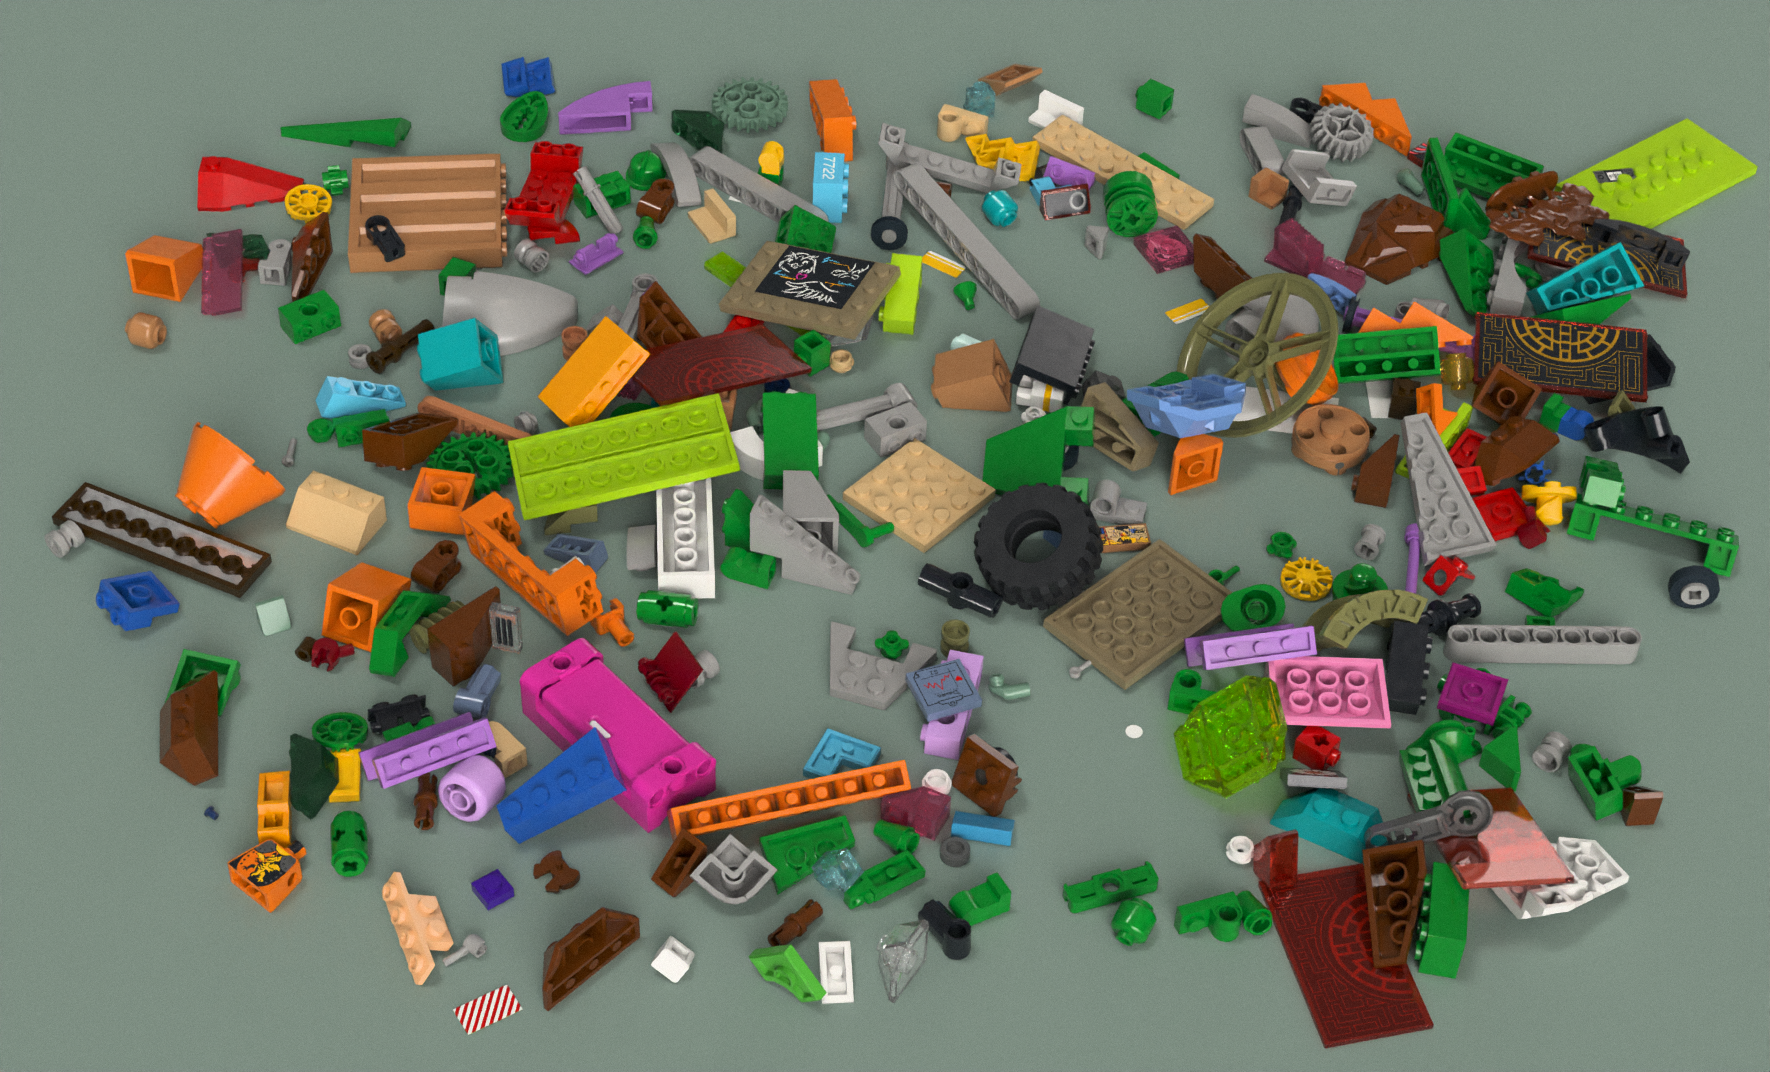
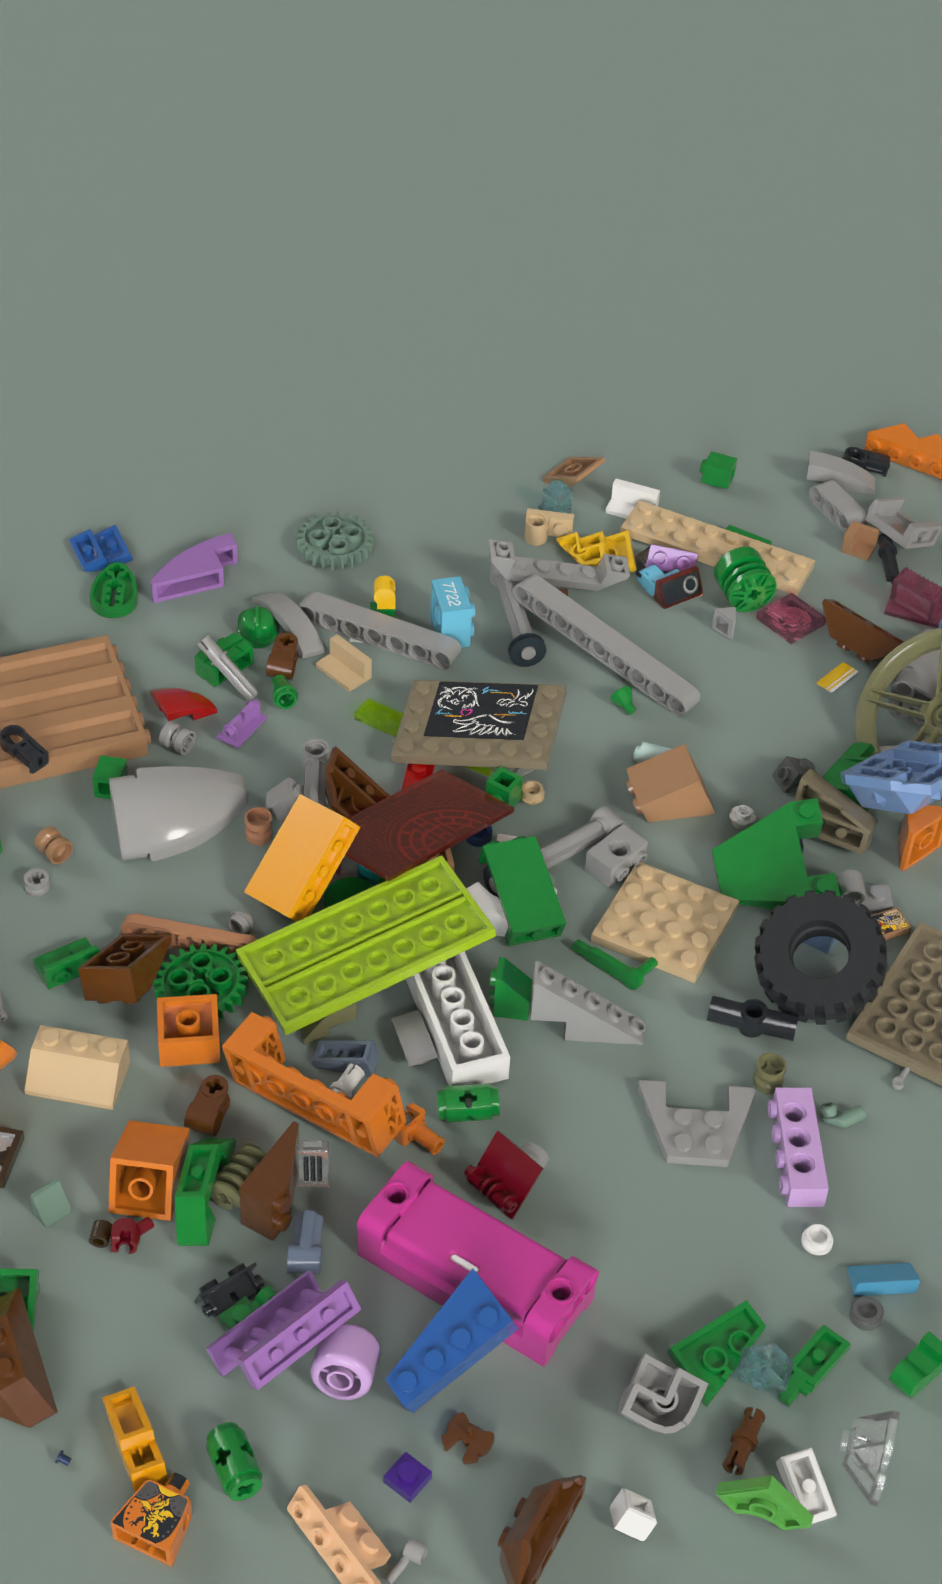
camera: 15 degrees left, 0 degrees up
(312, 774) = (163, 1386): clear green slope -> none
(320, 430) = (24, 974): green plate -> none
(340, 732) = (173, 1325): green wheel -> none
(349, 397) = (46, 931): medium azure slope -> none
(349, 776) = (195, 1376): yellow tile -> none
(392, 350) = (71, 869): dark brown pin -> none
(425, 801) = (298, 1389): reddish brown pin -> none
(460, 356) = (147, 864): teal slope -> none
(509, 753) = (372, 1305): tan leg -> none
(547, 187) = (167, 660): red slope -> none
(679, 863) = (600, 1398): reddish brown slope -> none
(699, 128) = (296, 574): clear green slope -> none
(749, 567) = (531, 1037): green leg -> none
(755, 416) = (469, 866): sand green arm -> none
(789, 799) = (681, 1298): orange brick -> none
(805, 230) = (443, 662): green bracket -> none
(810, 507) = (576, 958): light grey slope -> none
(832, 117) = (422, 540): orange wedge -> none
(838, 750) = (704, 1223): medium azure tile -> none
(891, 645) = (705, 1098): green plate -> none
(897, 836) = (806, 1311): green cone -> none
(902, 299) = (573, 727): lime wedge -> none
(918, 808) = (814, 1277): clear pink slope -> none
(943, 264) = (585, 671): yellow sticker -> none
(943, 690) = (791, 1135): sand blue tile -> none
(949, 930) = (888, 1397): black piece -> none
(986, 775) = (869, 1221): reddish brown piece -> none
(999, 208) = (620, 604): teal head -> none
(1040, 395) = (744, 784): white hips -> none
(1054, 352) = (739, 745): black panel -> none
(1341, 132) = (903, 474): light grey gear -> none

